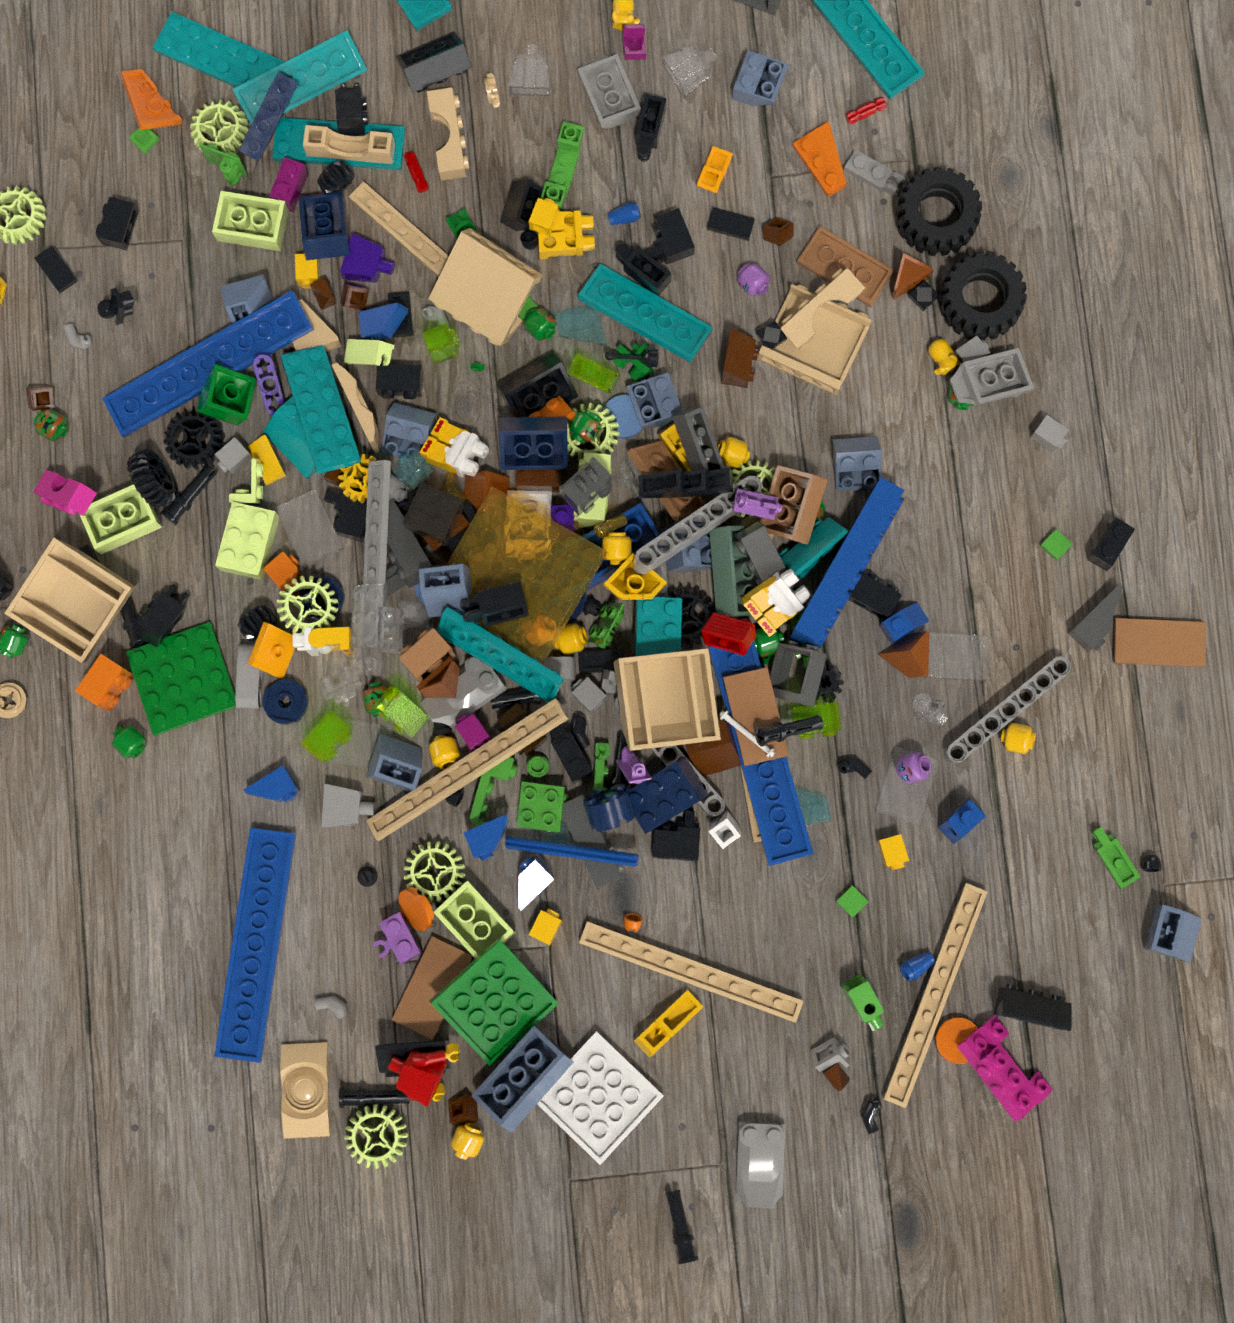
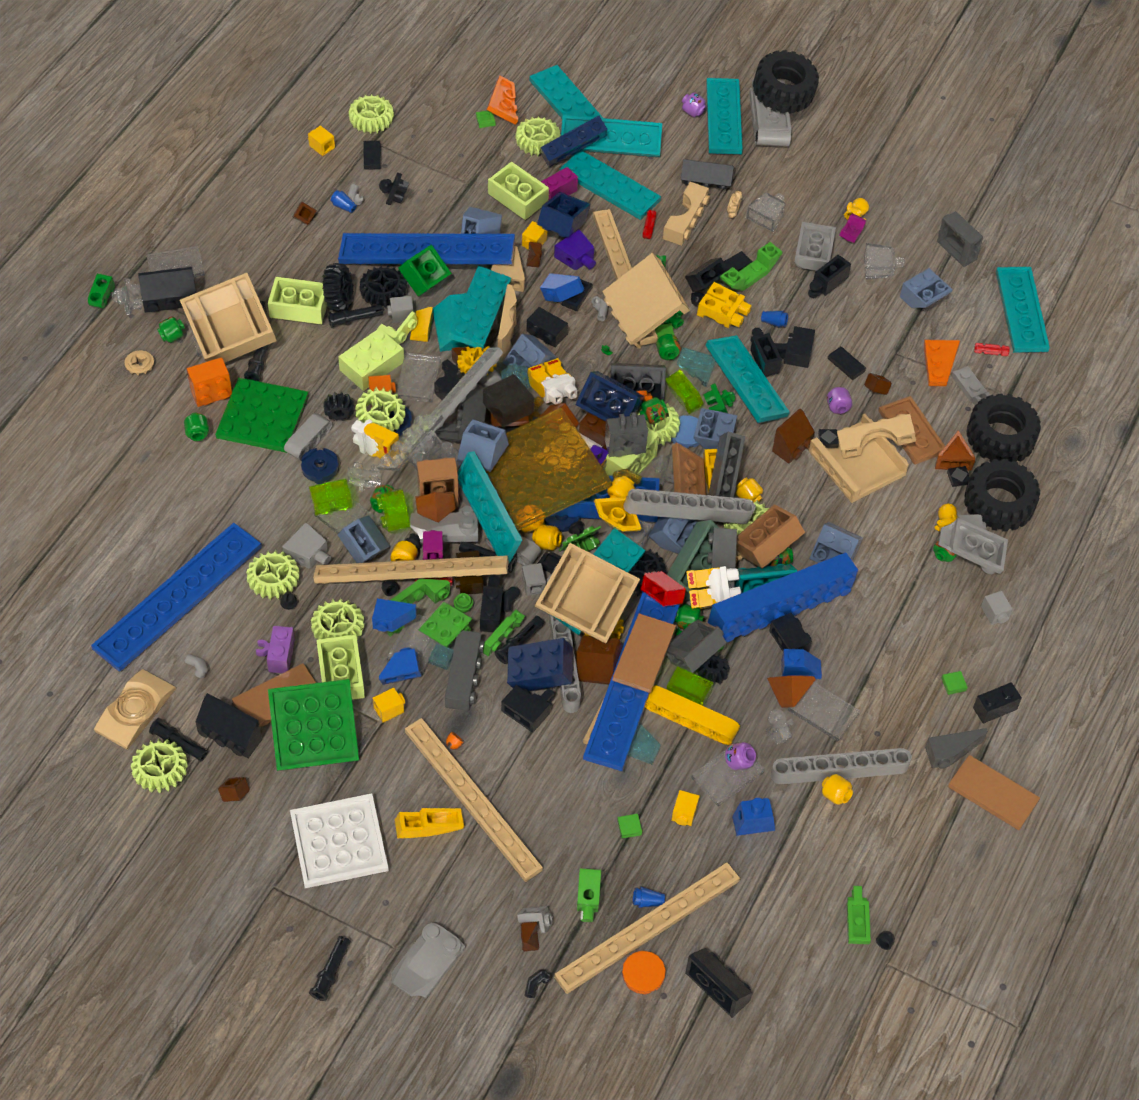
camera: 25 degrees right, 25 degrees down
(50, 424) = (298, 230): green head -> none
(64, 494) = (275, 264): dark pink arch -> none
(70, 354) = (342, 201): none -> blue cone
(117, 223) = (431, 150): black brick -> none
(161, 617) = (278, 368): black hinge -> none
(229, 163) = (527, 152): bright green hinge -> none
(259, 370) = (466, 268): dark purple beam -> none
(272, 651) = (335, 426): light orange plate -> none
(276, 786) = (270, 508): blue slope -> none
(313, 851) = (269, 580): none -> yellowish green gear
(325, 143) = (599, 171): tan arch -> none
(335, 177) = (593, 195): black gear -> none
(350, 110) = (630, 167): black hinge -> none
(354, 295) = (554, 266): reddish brown slope -> none
(367, 352) = (538, 295): yellowish green hinge -> none
(416, 909) = (306, 635): orange tile -> none
(422, 1073) = (224, 733): red torso -> none
(441, 343) = (590, 318): clear neon green brick -> none
(467, 1140) = (221, 808): yellow head -> none
(496, 605) = (509, 468): black hinge -> none
(522, 1079) = (293, 787): sand blue brick -> none
(540, 166) = (737, 261): none -> black tile
(544, 216) = (716, 283): yellow brick -> none
(572, 851) = (446, 662): blue axle -> none
(608, 808) = (492, 643): dark blue brick -> none
(632, 767) = (530, 633): medium lavender hinge -> none
(649, 358) = (730, 401): black hinge -> none
(685, 484) = (694, 475): black slope -> none
(715, 169) = (859, 327): light orange slope -> none
(724, 715) = (638, 677): white axle -> none
(724, 829) = (568, 716): white brick -> none
(756, 504) = (740, 516): medium lavender hinge -> none
(779, 731) = (654, 664): black pin -> none
(838, 746) = (692, 715): none -> yellow beam
(854, 765) = (696, 736): black arm -> none
(1000, 1072) = (660, 1011): dark pink bracket -> none
(1173, 933) = (871, 996): sand blue slope -> none

